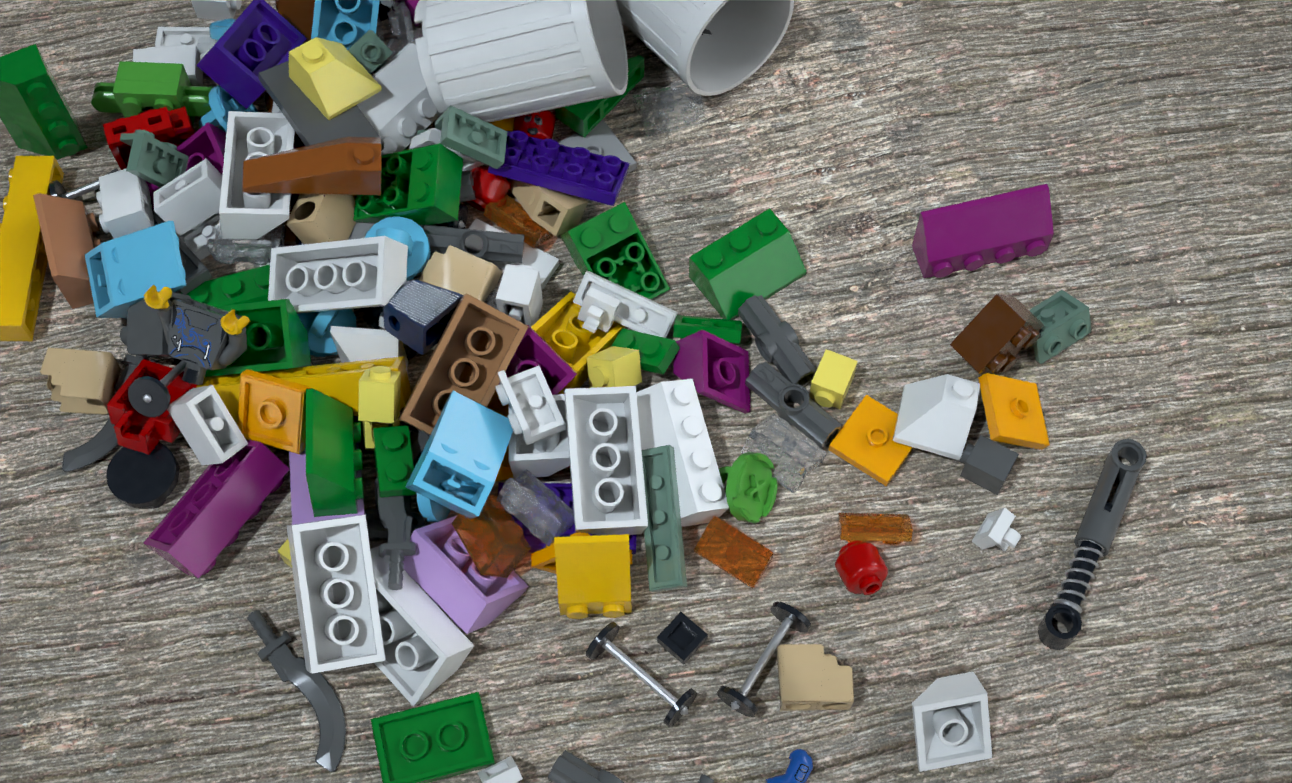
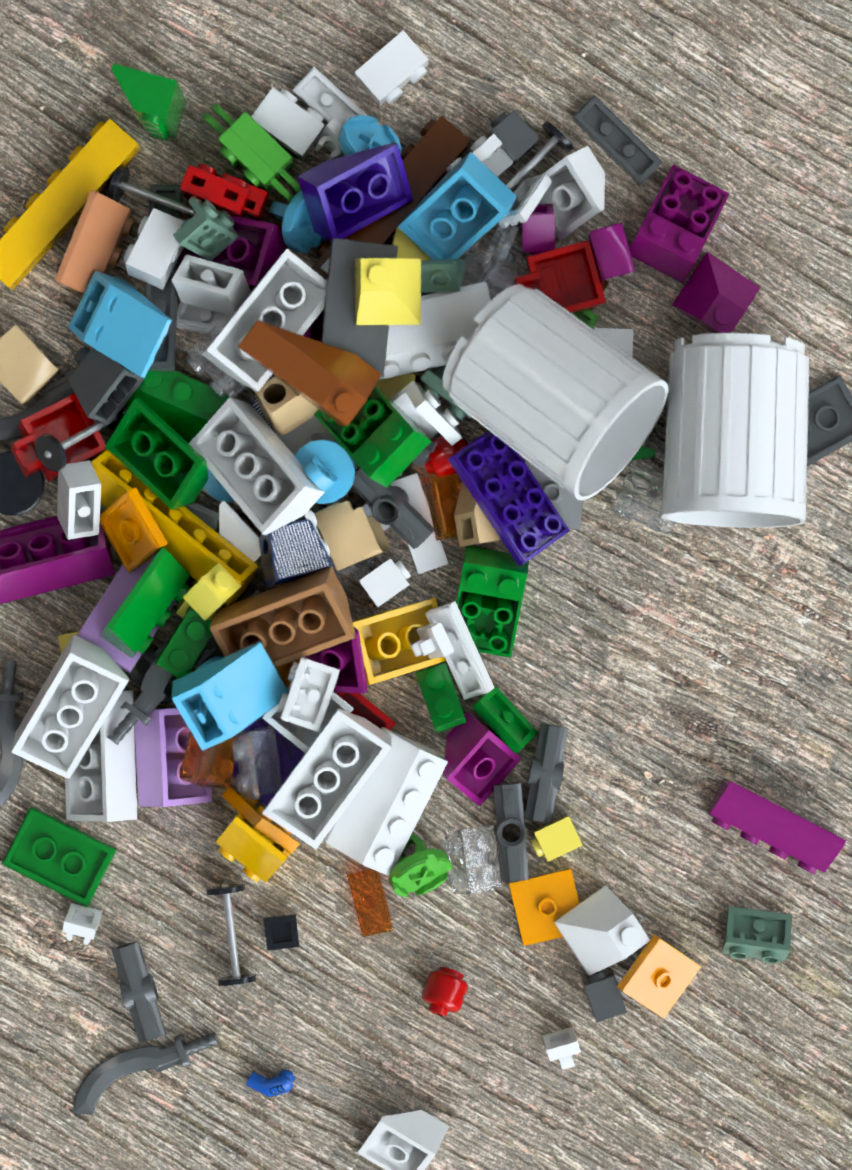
camera: 45 degrees right, 25 degrees up
(198, 333) = (125, 430): dark grey torso -> none
(472, 136) = (451, 434): sand green bracket -> none
(614, 368) = (404, 699): light yellow brick -> none
(664, 529) = (324, 862): sand green tile -> none
(745, 263) = (580, 694): green slope -> none
(790, 618) = (279, 1007): axle -> none
(812, 679) = (341, 1037): tan piece -> none
(864, 527) = (482, 970): clear orange plate -> none
(997, 335) = (696, 919): reddish brown brick -> none
(1093, 541) = (624, 1109): piece -> none

